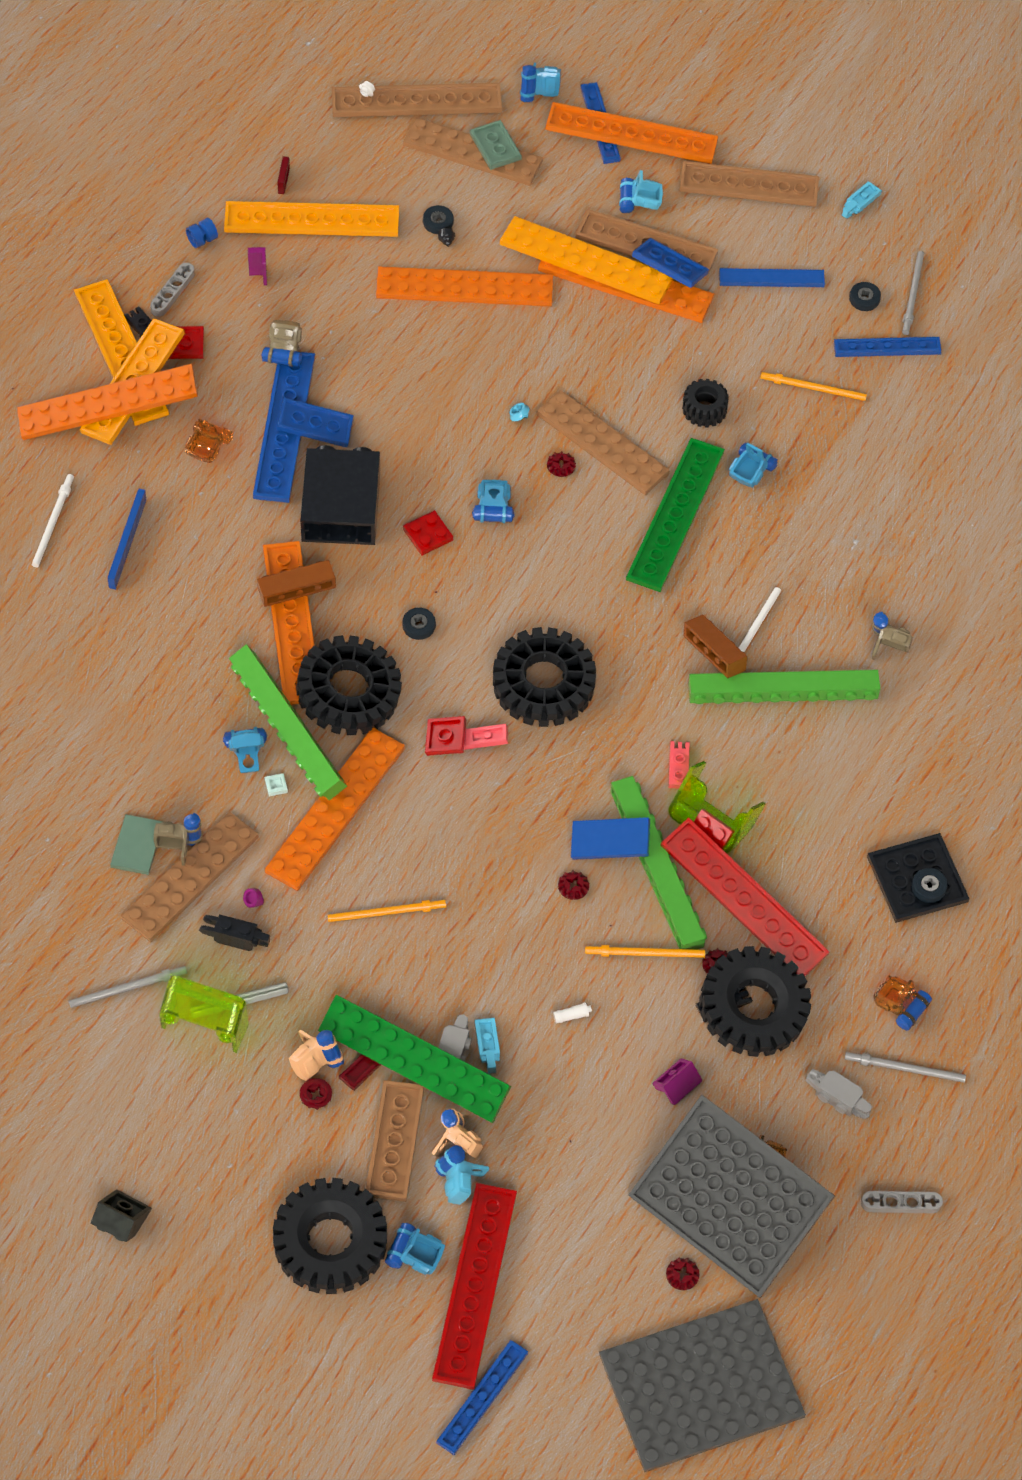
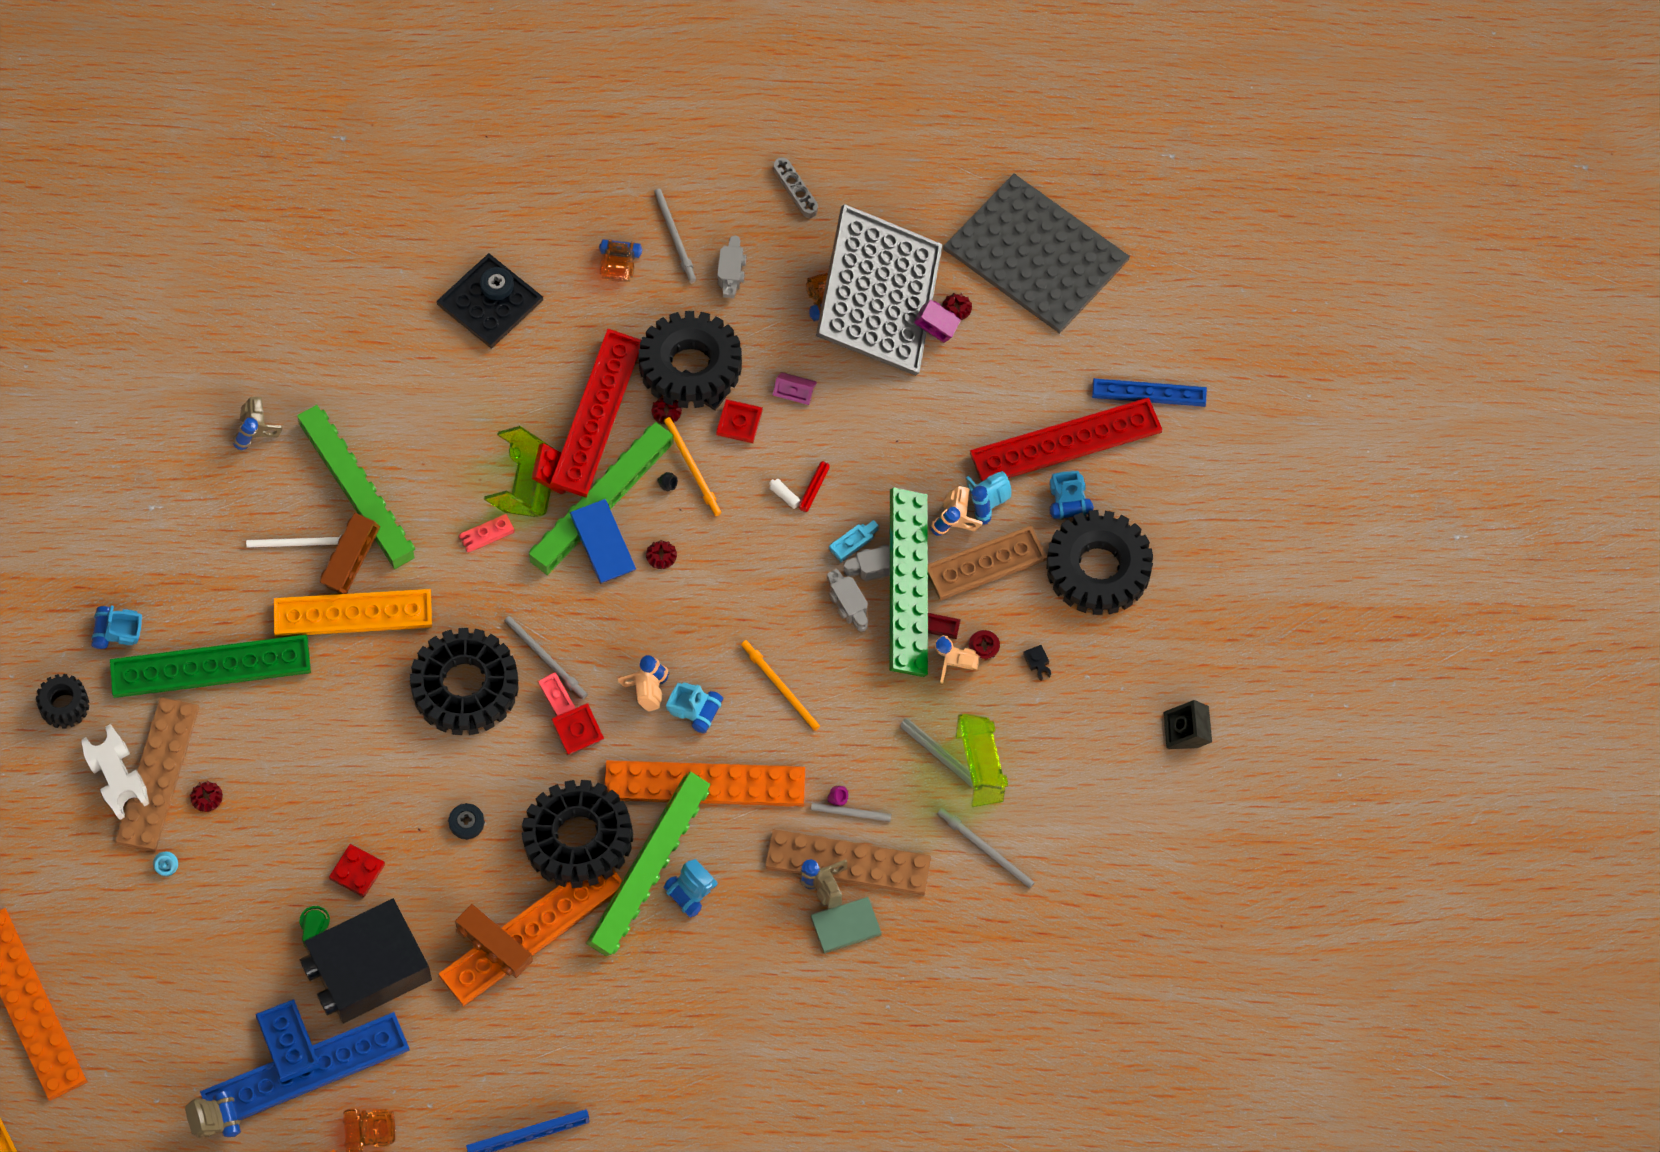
camera: 120 degrees left, 5 degrees up
(234, 932) = (882, 787): black hinge -> none
(238, 897) = (851, 812): none -> light grey bar
(273, 1130) = (1037, 659): none -> black plate
(276, 784) = (712, 846): light aqua tile -> none
(399, 481) = (313, 922): none -> green piece
(408, 830) = (694, 704): none -> medium azure piece
(430, 1005) = (849, 599): none -> light grey hinge
(449, 803) = (647, 682): none -> light nougat piece
(493, 502) = (289, 826): dark azure piece -> none
(493, 756) = (570, 682): none -> light grey bar
(564, 1042) = (814, 486): none -> red axle
(633, 410) = (109, 759): none -> white piece
(642, 925) = (667, 481): none -> black plate
(661, 632) = (352, 612): none -> light orange plate
(669, 1014) = (739, 421): none -> red plate
(672, 1237) = (937, 321): none -> brick

